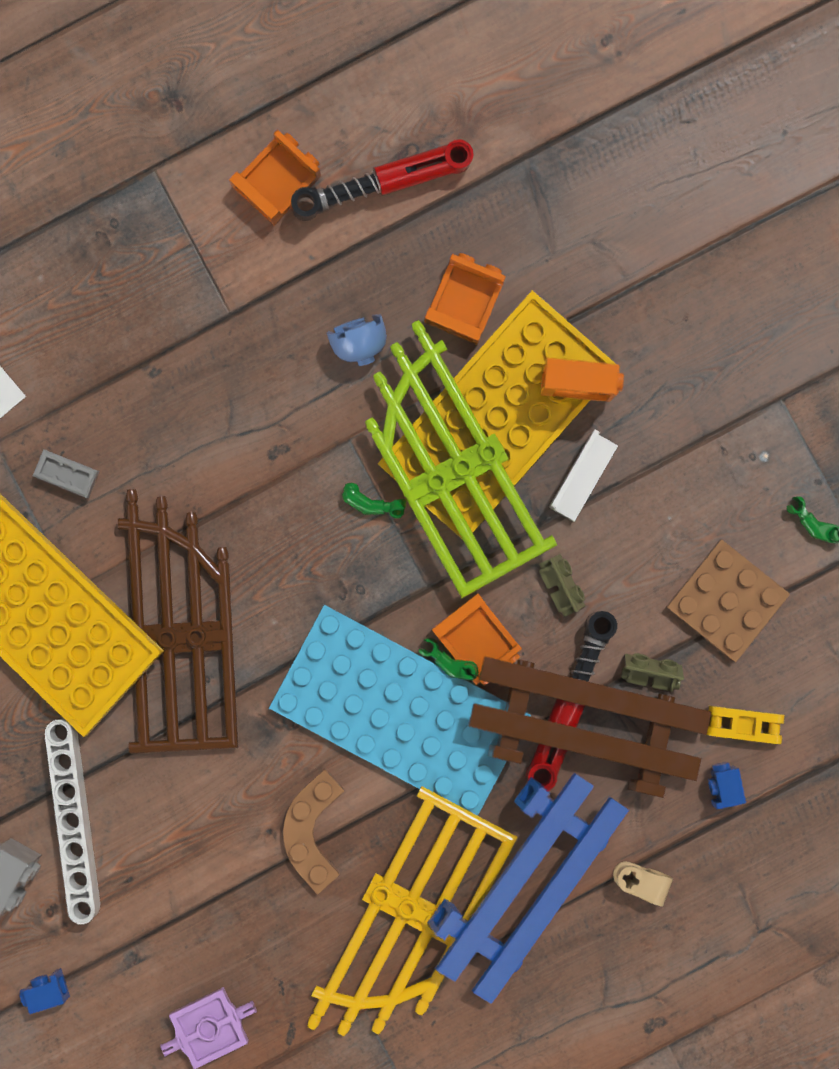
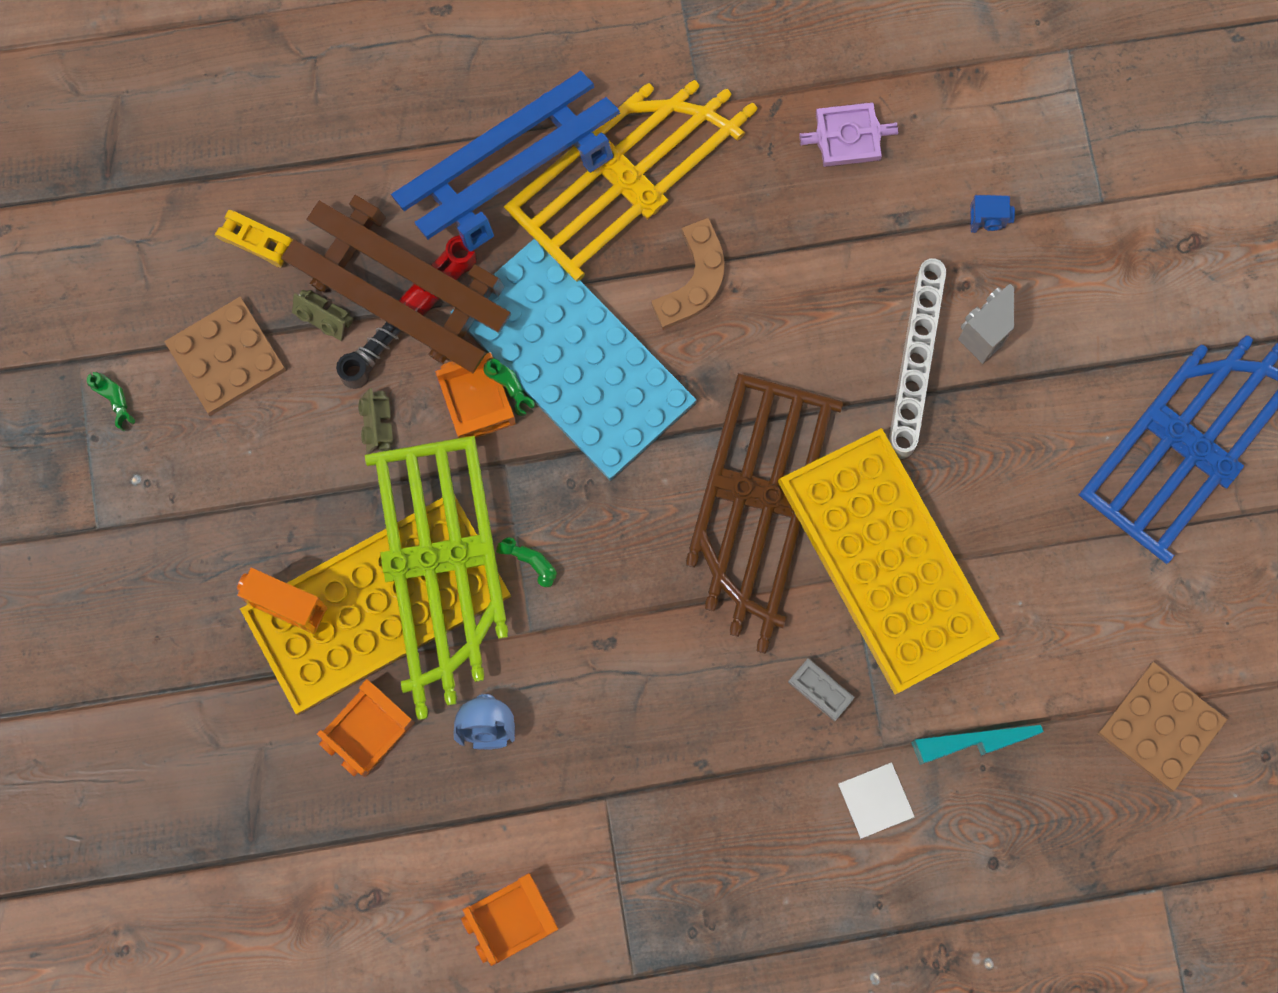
camera: 160 degrees left, 10 degrees down
(386, 178) = (398, 877): piece -> none
(583, 476) = (316, 518): white panel -> none
(646, 884) = (404, 131): tan piece -> none
(726, 785) = (293, 188): blue brick -> none

